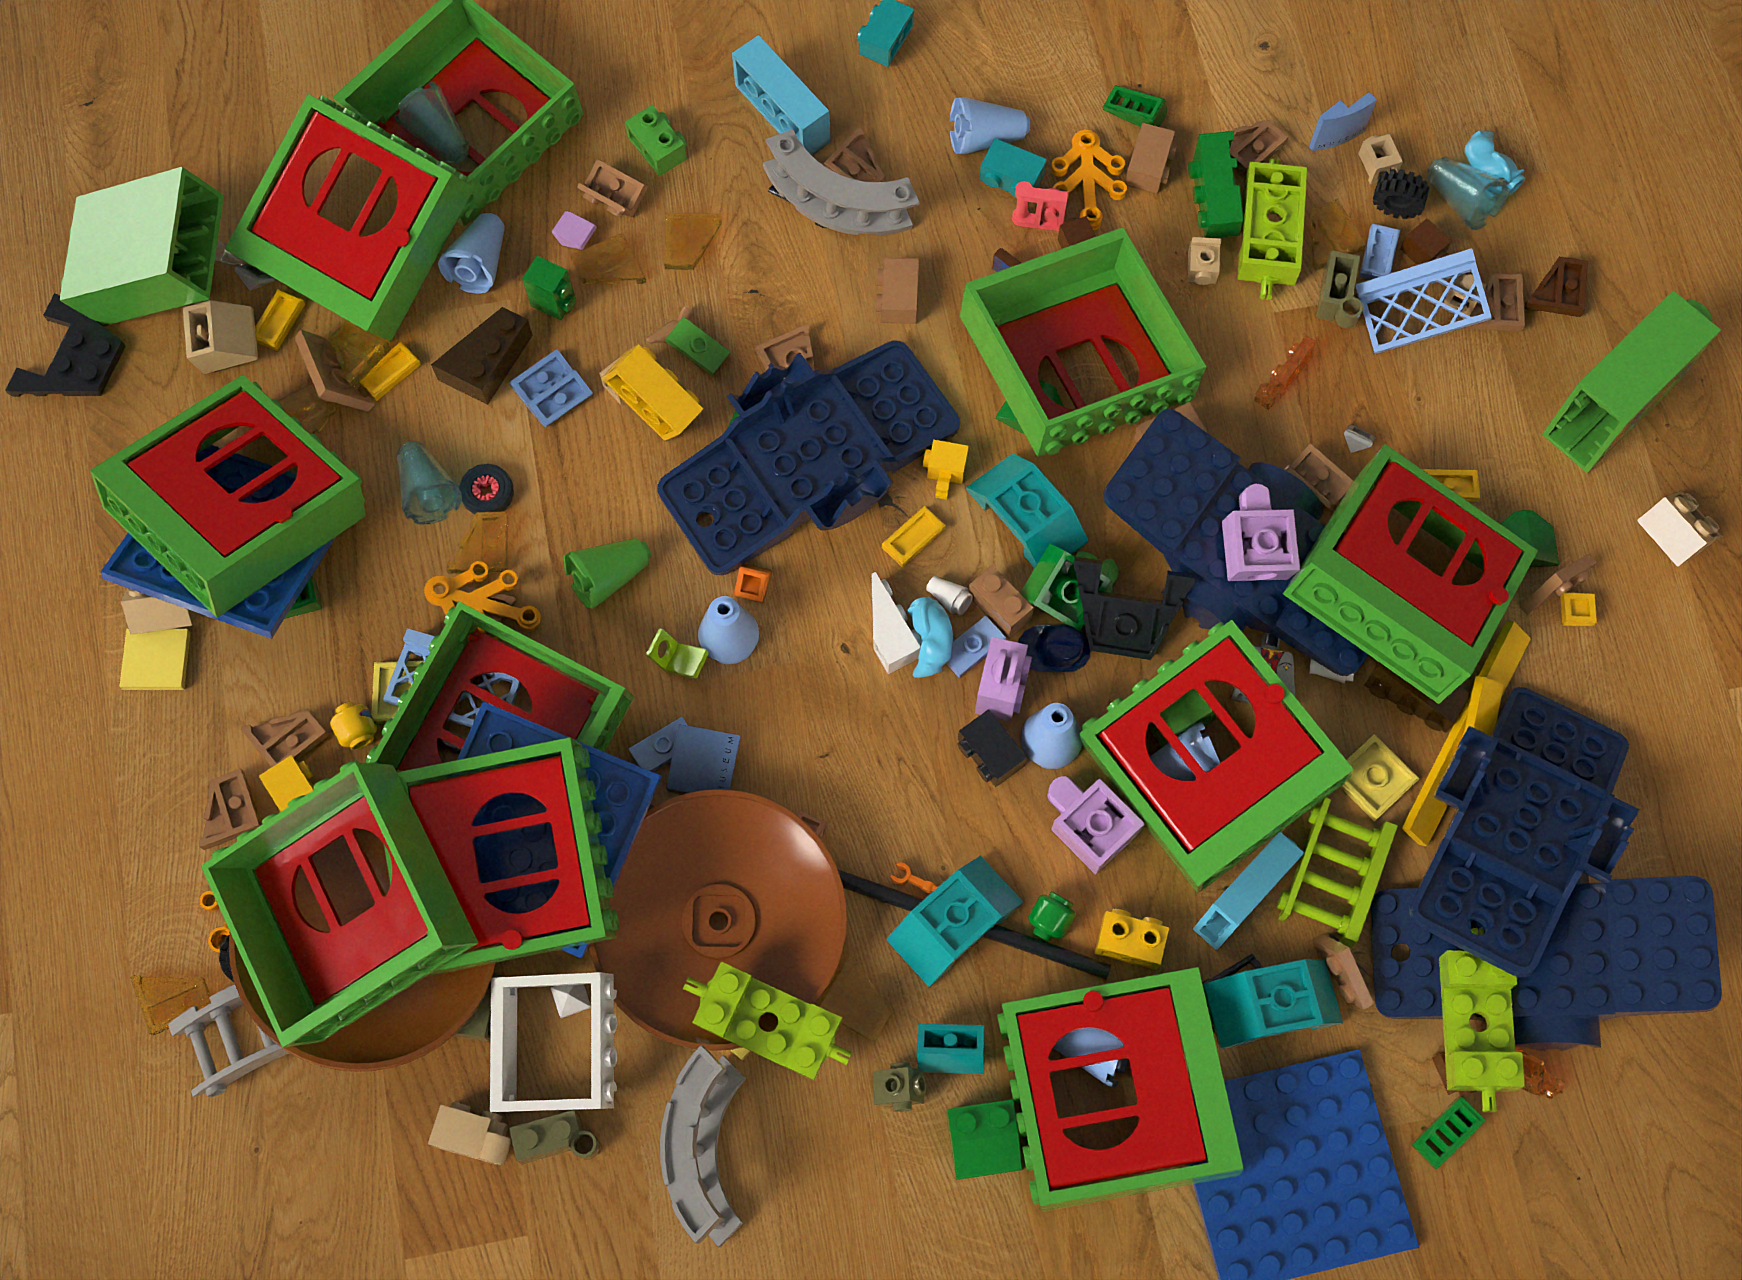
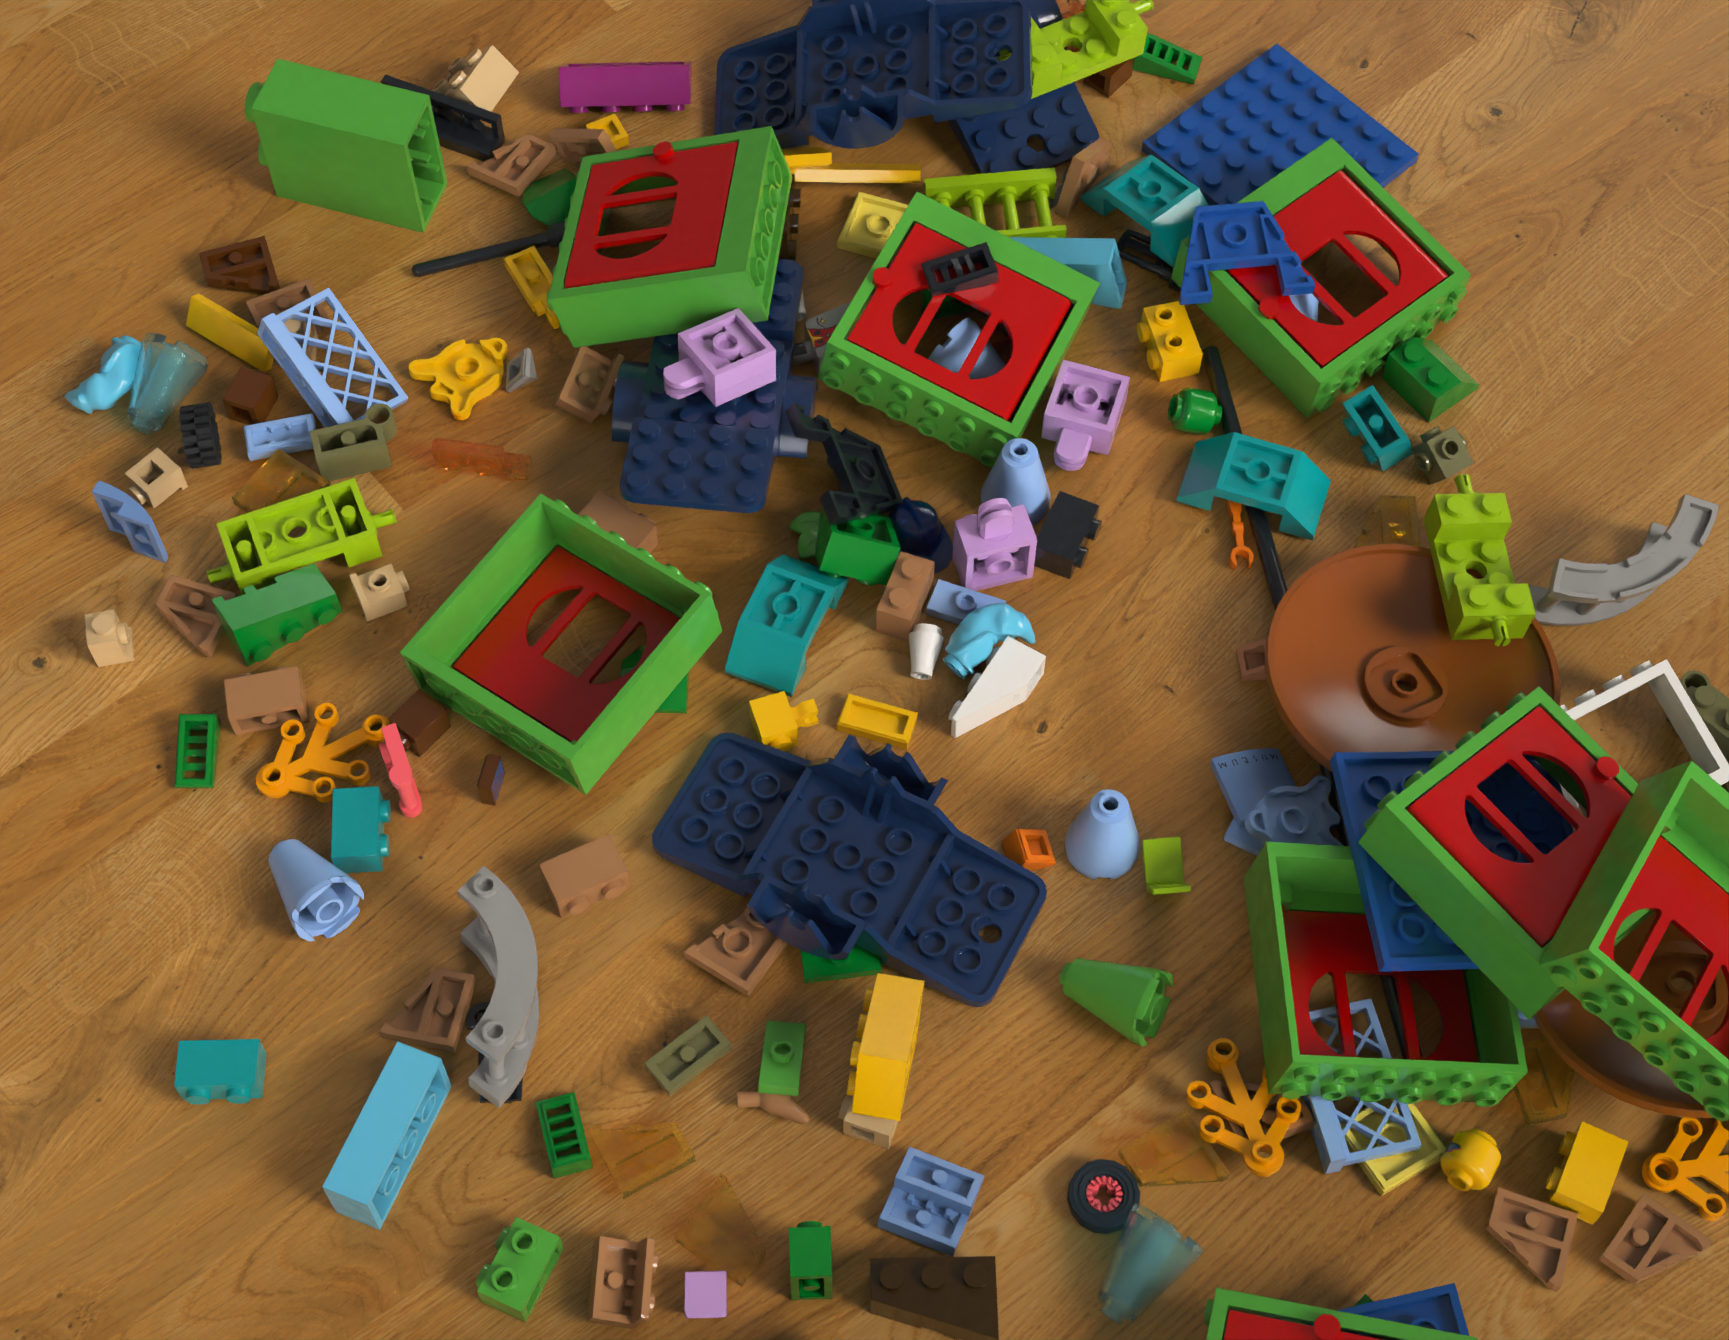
camera: 120 degrees left, 10 degrees down
(662, 753) = (1295, 815): none -> light blue tile
(720, 192) = (572, 1162): none -> green slope
(735, 294) = (688, 1056): none -> olive plate
(1172, 1005) = (1238, 238): none -> blue wing
(1250, 782) = (969, 256): none -> black slope
(1254, 83) = (109, 638): none -> tan brick
(1378, 402) = (463, 373): none -> yellow tile
(1493, 461) = (551, 237): none -> black piece
(1506, 251) = (228, 332): none -> yellow tile
(1577, 524) = (515, 165): none -> medium nougat wing
(1630, 649) = (625, 85): none -> magenta slope
(1651, 488) = (456, 133): none -> black fence

